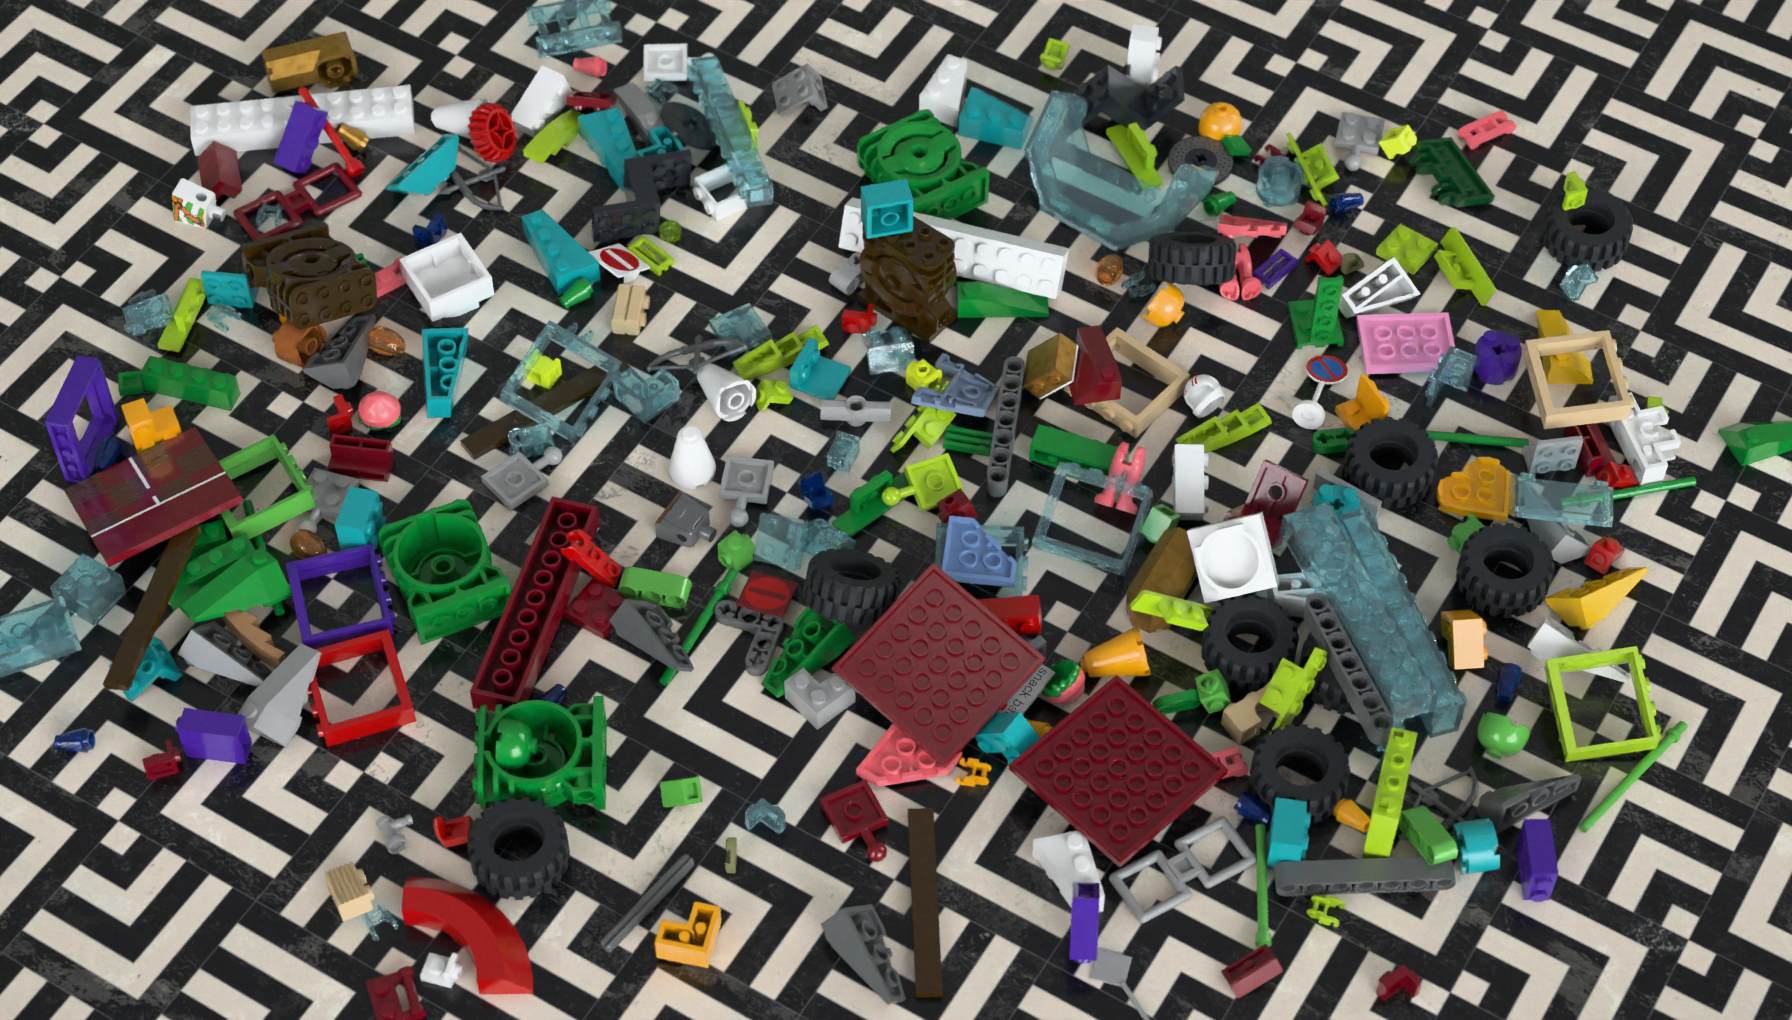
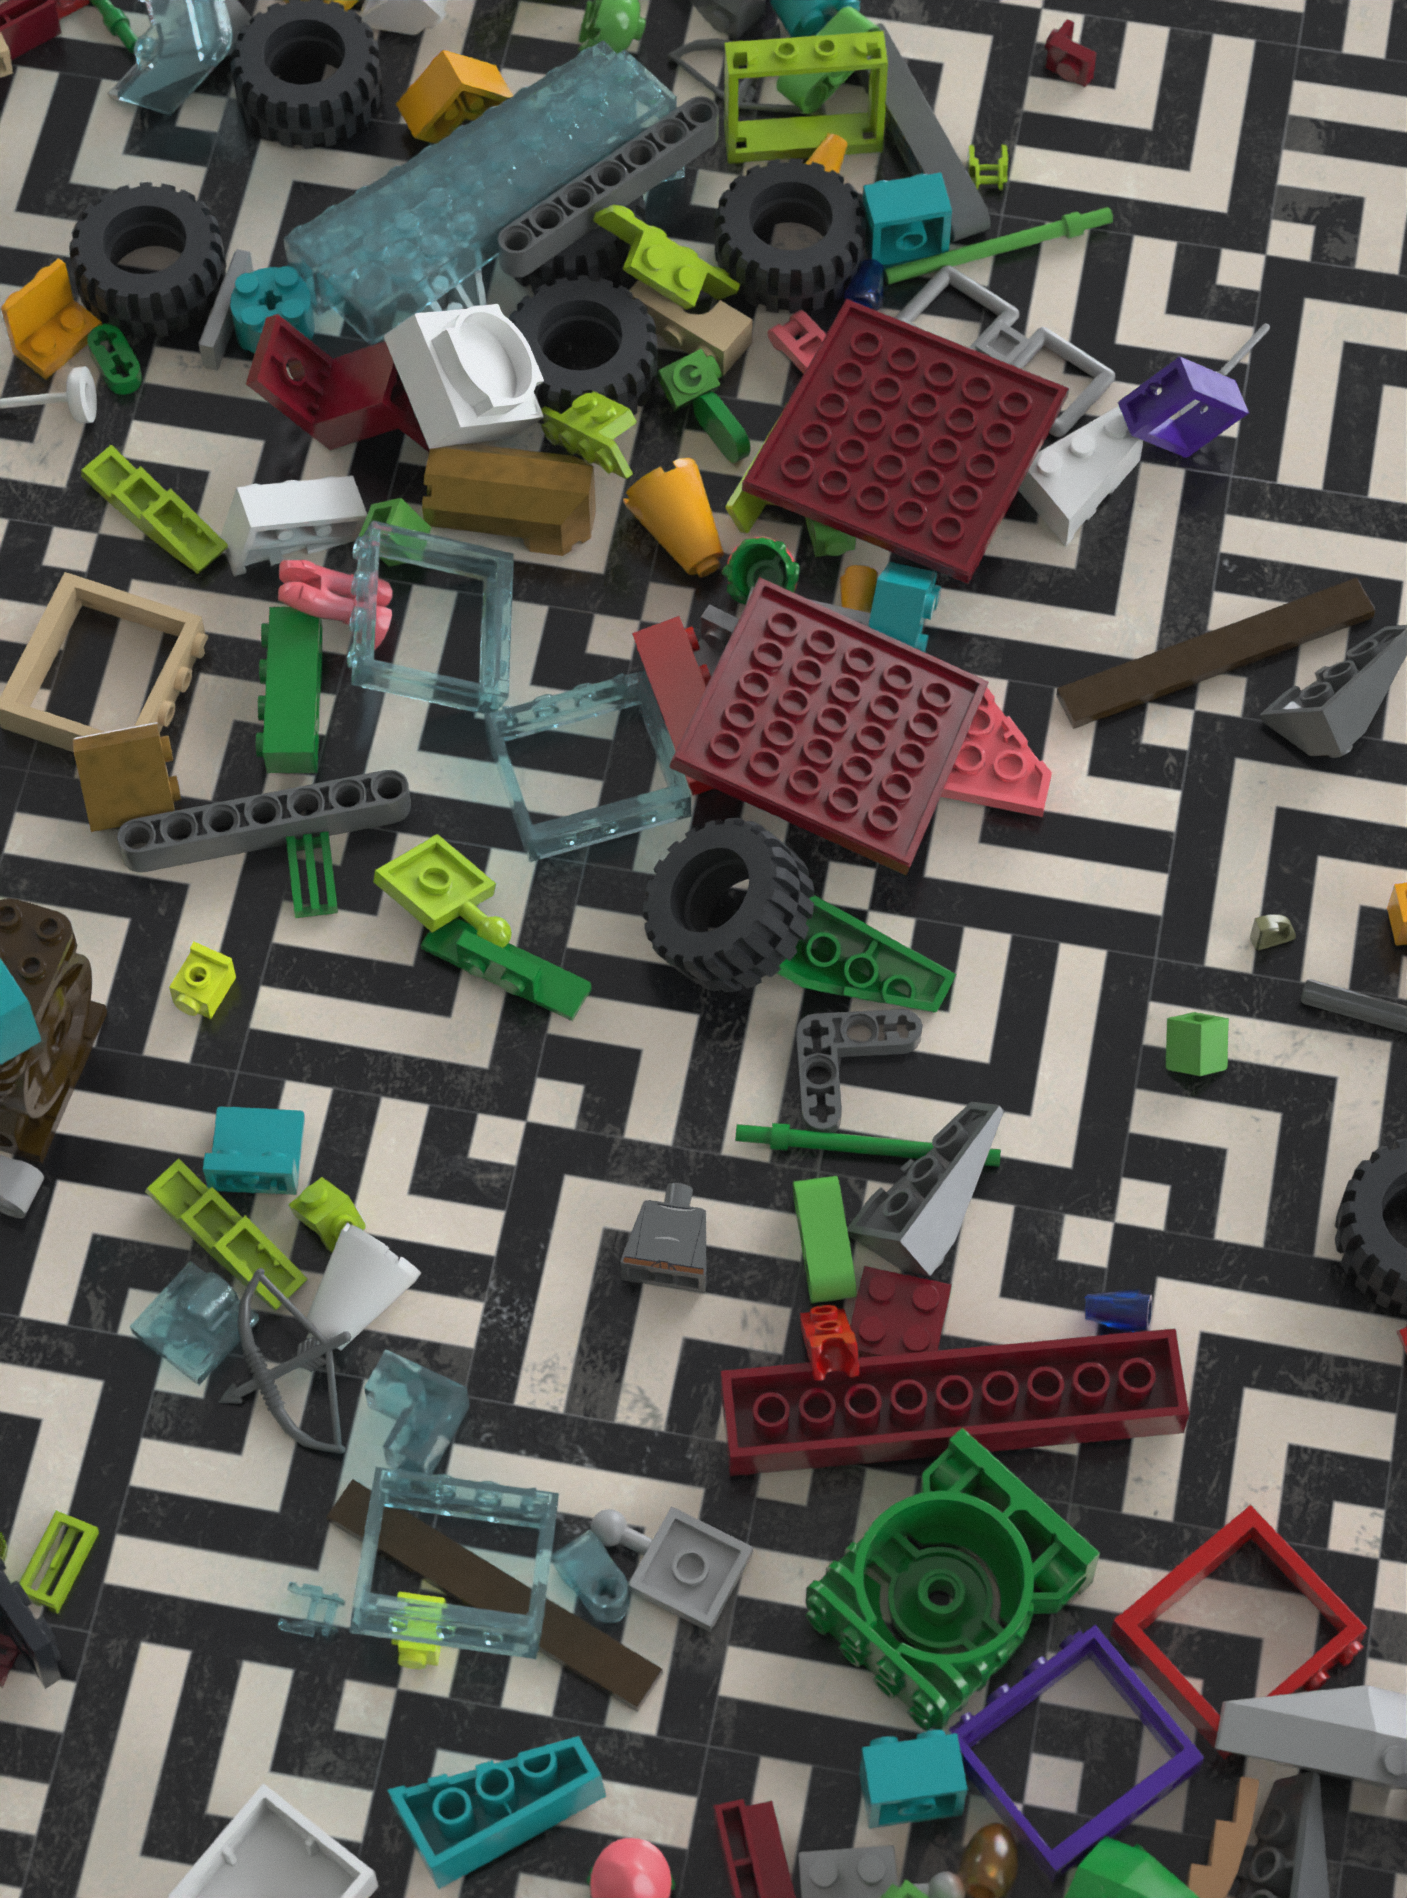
camera: 110 degrees left, 10 degrees up
(514, 744) = (1266, 1288): green cylinder -> none
(551, 780) = (1227, 1325): green brick -> none
(558, 252) = (122, 1722): teal wedge -> none
(577, 292) = (206, 1650): green cone -> none
(620, 261) = (103, 1600): piece -> none
(629, 309) = (216, 1533): tan brick -> none
(691, 459) = (537, 1283): white cone -> none
(736, 551) = (701, 1135): bright green brick -> none
(745, 482) = (540, 1181): light grey plate -> none
(767, 594) = (768, 1057): piece -> none
(768, 814) = (1180, 919): clear light blue bracket -> none
(780, 541) = (654, 1061): clear light blue bracket -> none
(815, 492) = (524, 1059): clear blue bracket -> none
(818, 700) = (939, 901): light grey brick -> none
(822, 537) = (616, 1013): clear light blue bracket -> none
(843, 451) = (416, 1063): clear light blue brick -> none
(856, 410) = (326, 1081): light grey piece -> none
(856, 814) = (1119, 790): dark red plate -> none
(859, 321) = (104, 1113): red bracket -> none
(888, 350) = (150, 1060): clear light blue bracket -> none
(926, 425) = (298, 948): lime bracket -> none
(956, 505) = (478, 814): dark red brick -> none
(963, 395) = (216, 895): sand blue wing -> none
(972, 779) = (979, 654): light orange piece -> none
(975, 556) = (580, 758): medium blue plate -> none
(1095, 370) = (117, 692): dark red wedge -> none
(1203, 395) = (89, 554): white helmet -> none
(1252, 971) = (1132, 221): dark red slope -> none
(1462, 532) = (248, 140): bright green brick -> none
(1477, 439) = (45, 192): green bar -> none
(1477, 490) = (147, 145): light orange plate -> none
(1508, 680) = (501, 39): clear blue cone -> none
(1552, 454) = (46, 69): light grey bracket -> none

